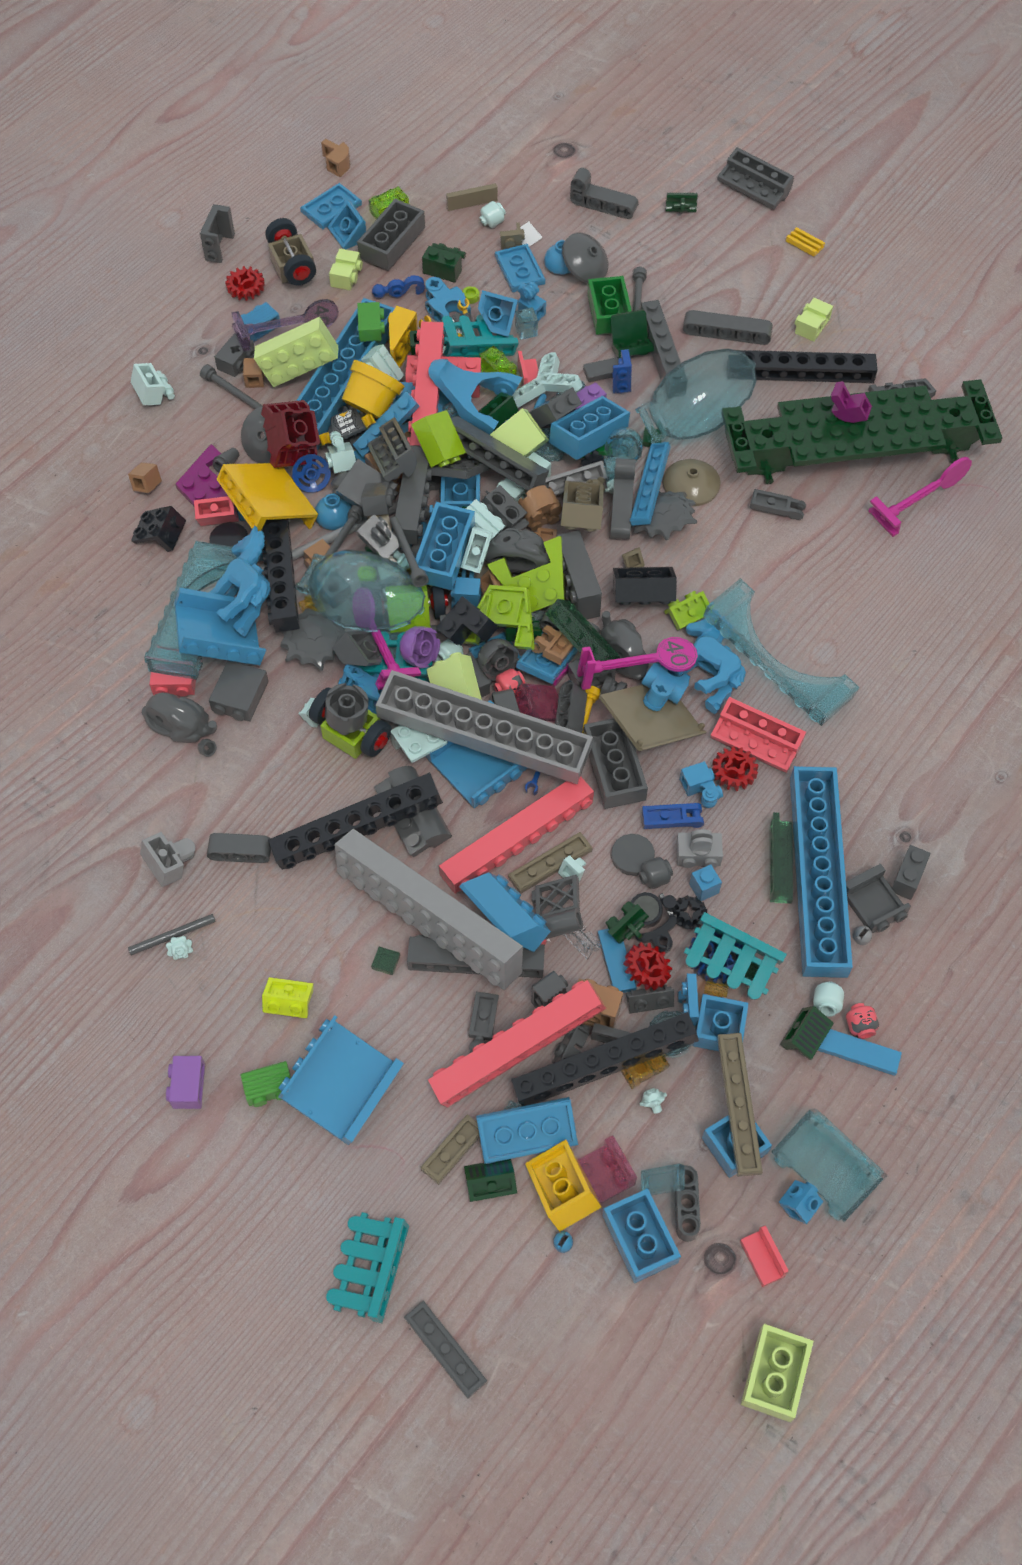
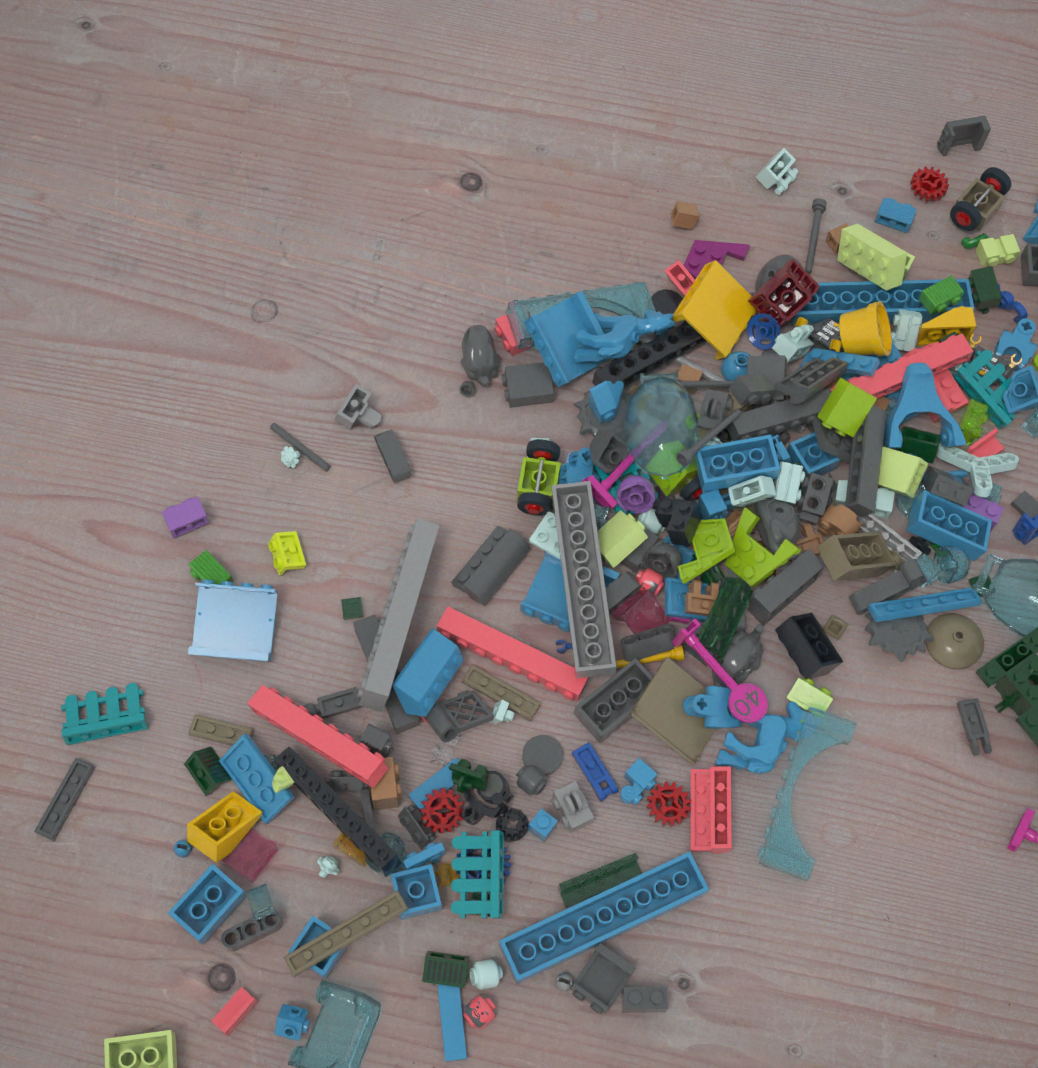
camera: 60 degrees right, 5 degrees up
(161, 525) = (646, 251): black bracket -> none
(226, 457) = (740, 263): dark grey cone -> none
(231, 356) = (849, 213): dark grey brick -> none
(309, 626) = (605, 400): none -> dark azure slope
(323, 287) = (968, 244): none -> green arm
(323, 308) = (927, 252): clear purple piece -> none
(344, 819) = (408, 485): black brick -> none
(346, 708) = (541, 476): dark grey brick -> none
(380, 290) = (984, 288): none -> dark green brick
(547, 1099) = (281, 780): none -> yellowish green tile
(611, 685) = (692, 667): dark grey wheel -> none

